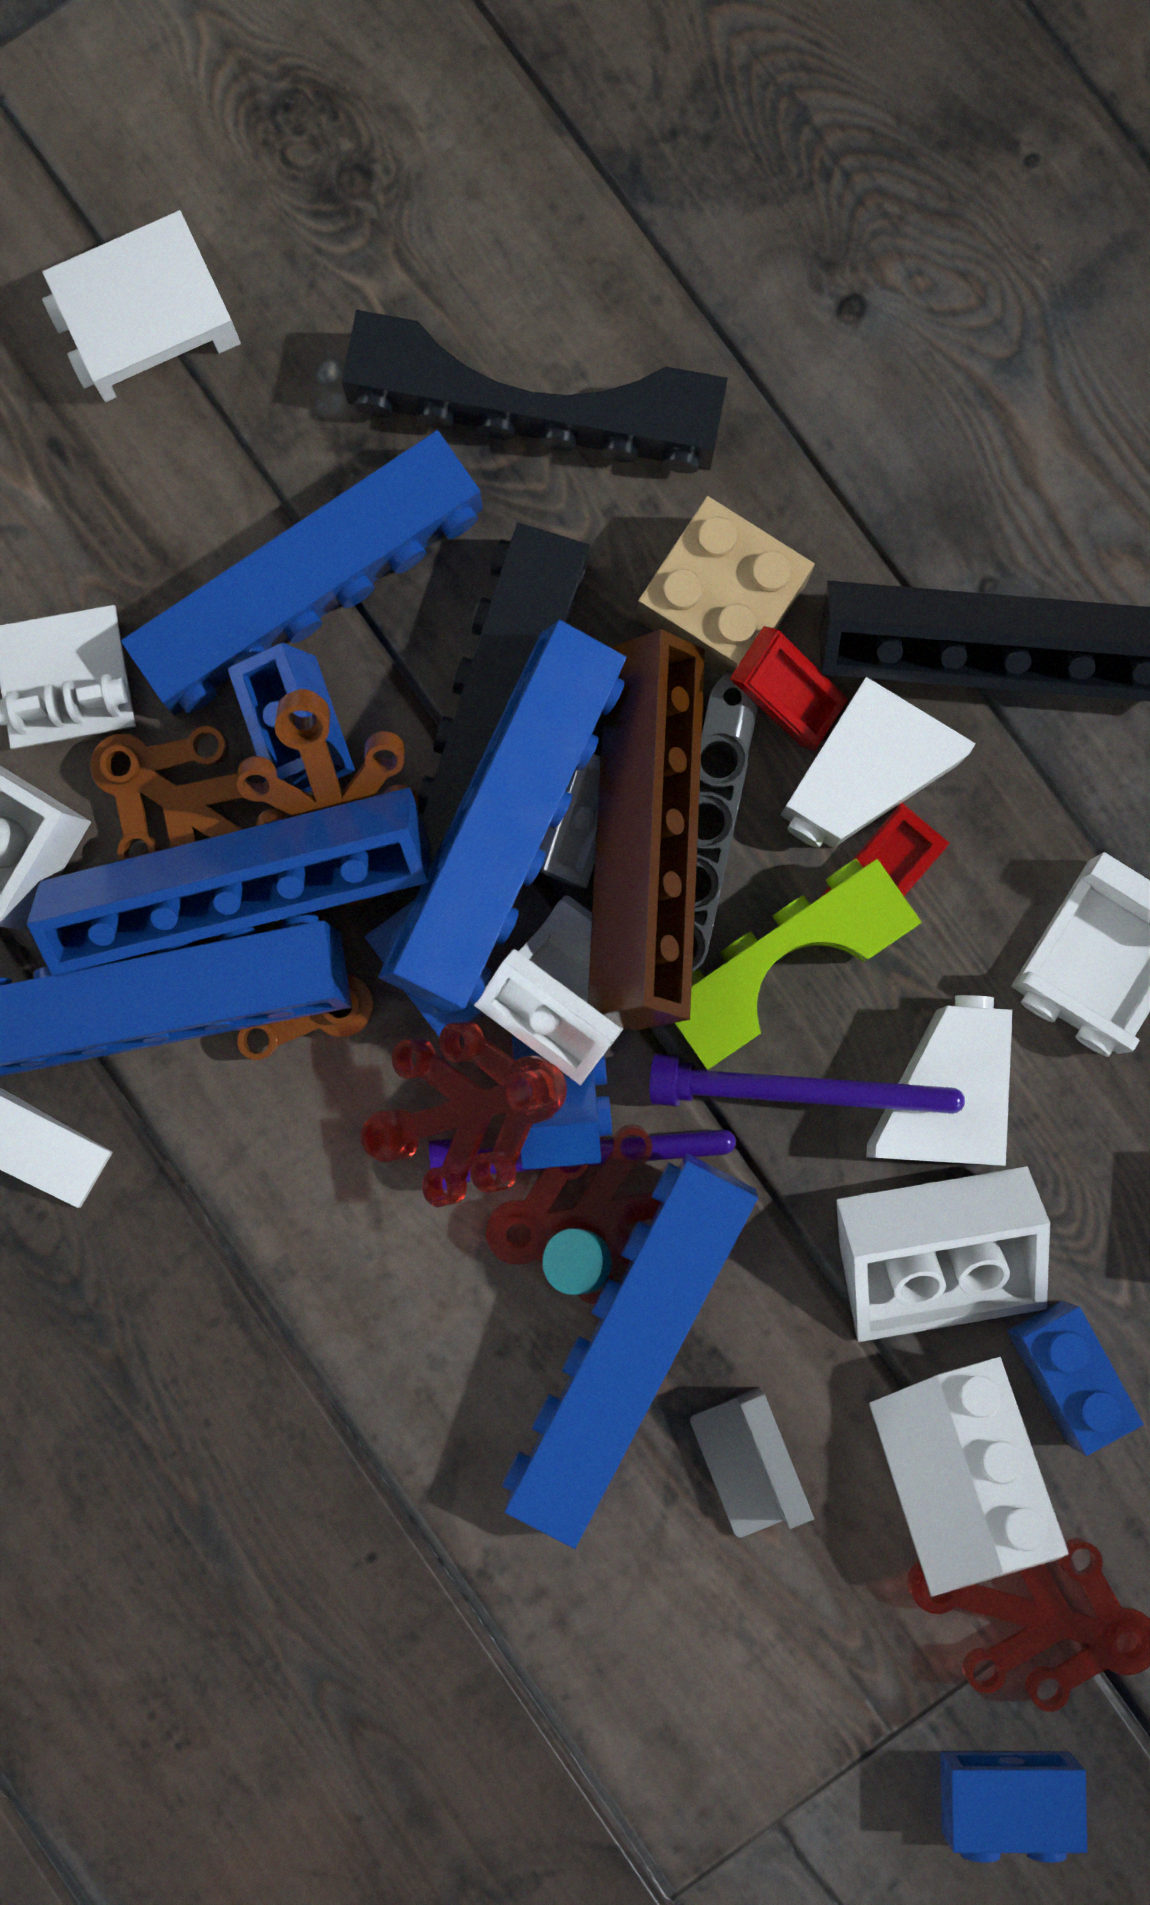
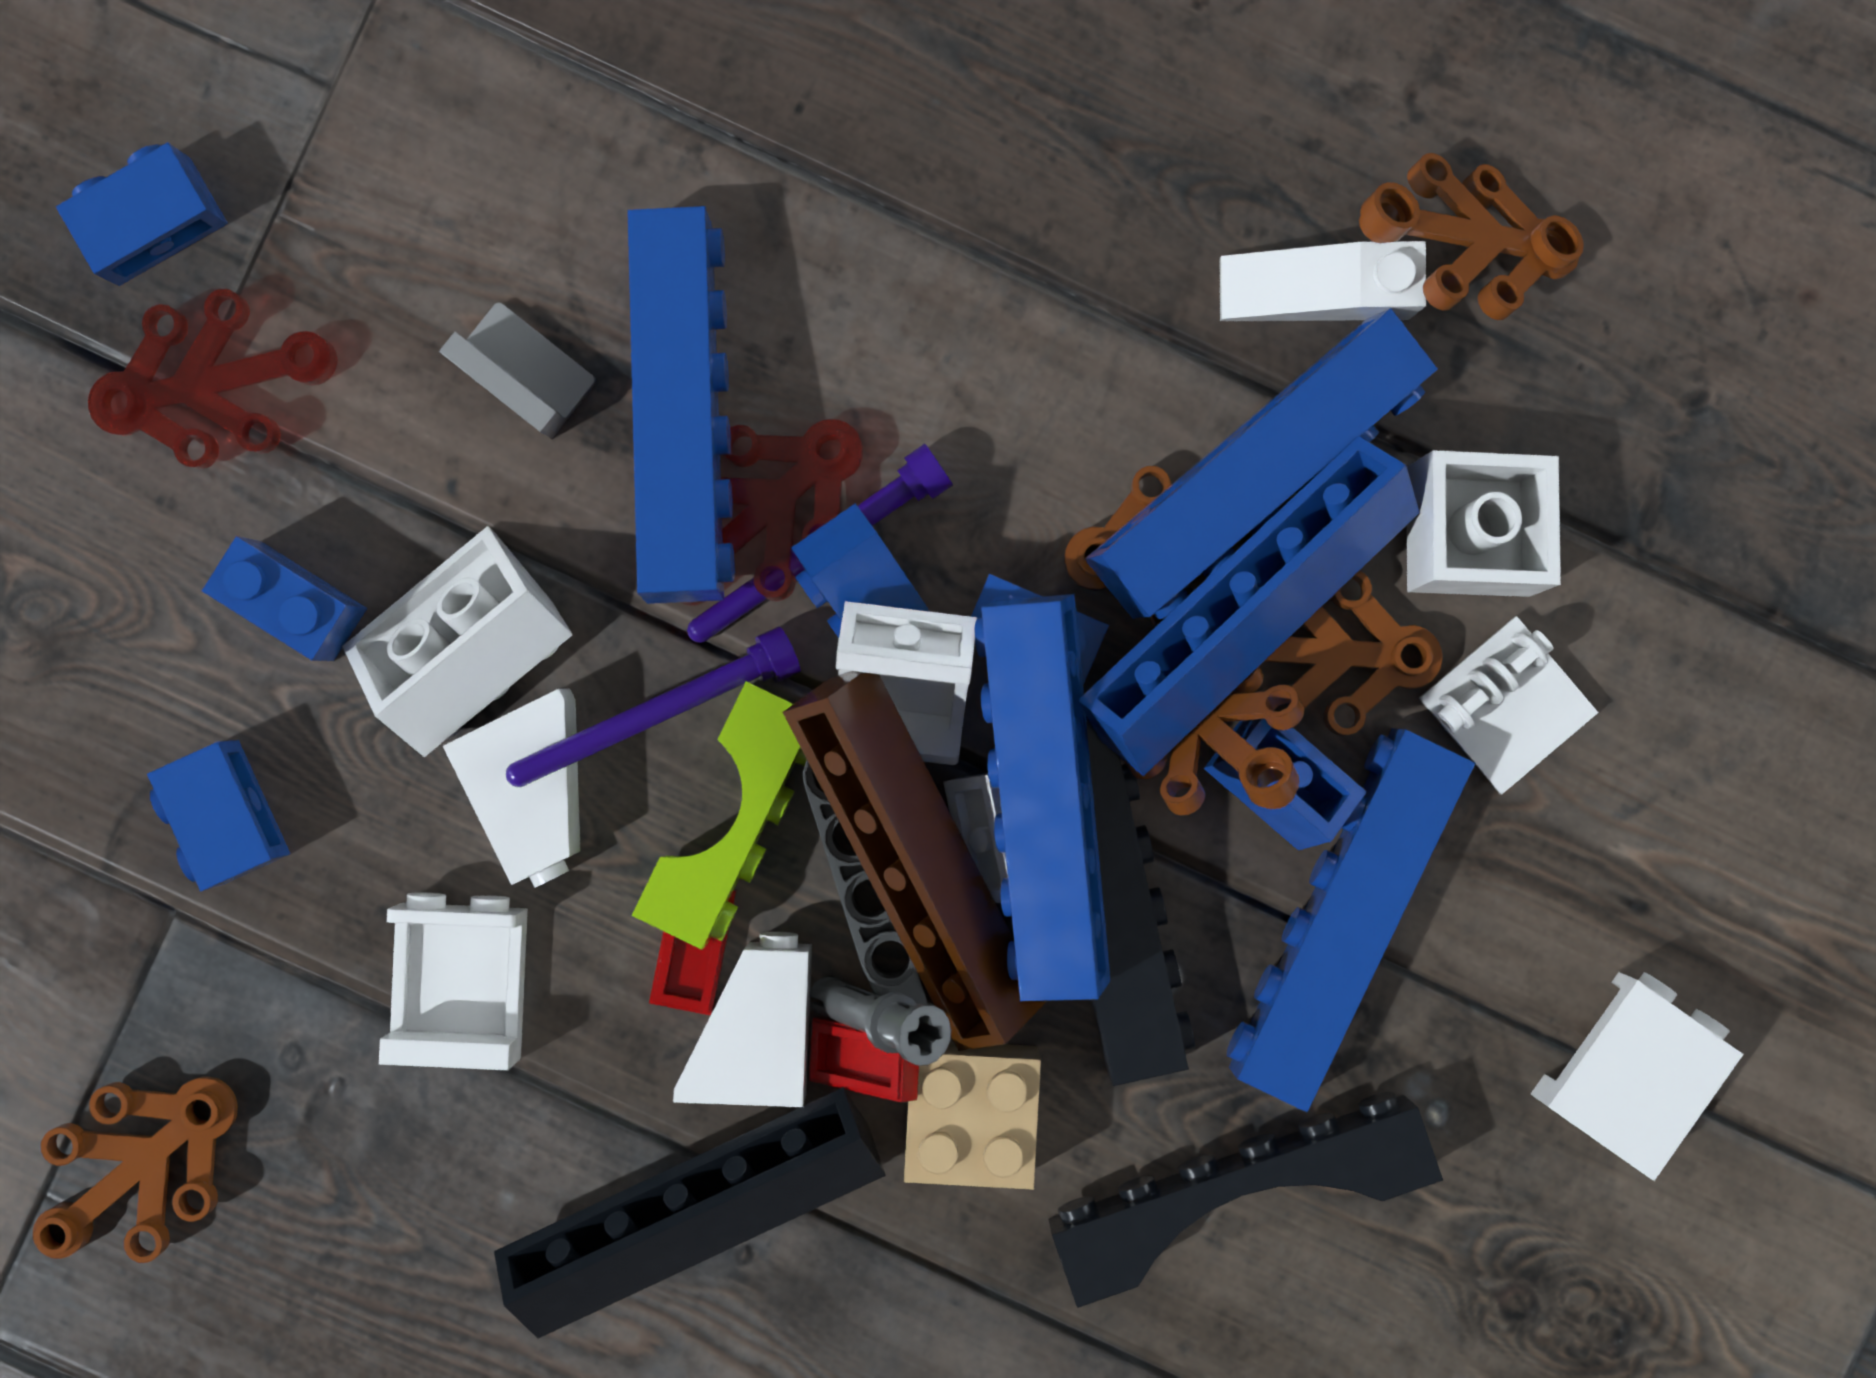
camera: 155 degrees right, 5 degrees up
(396, 1132) = (982, 474): clear red plant -> none
(576, 1261) = (765, 453): teal tile -> none
(748, 702) = (889, 1020): none -> dark grey pin
(967, 1477) = (327, 460): white slope -> none

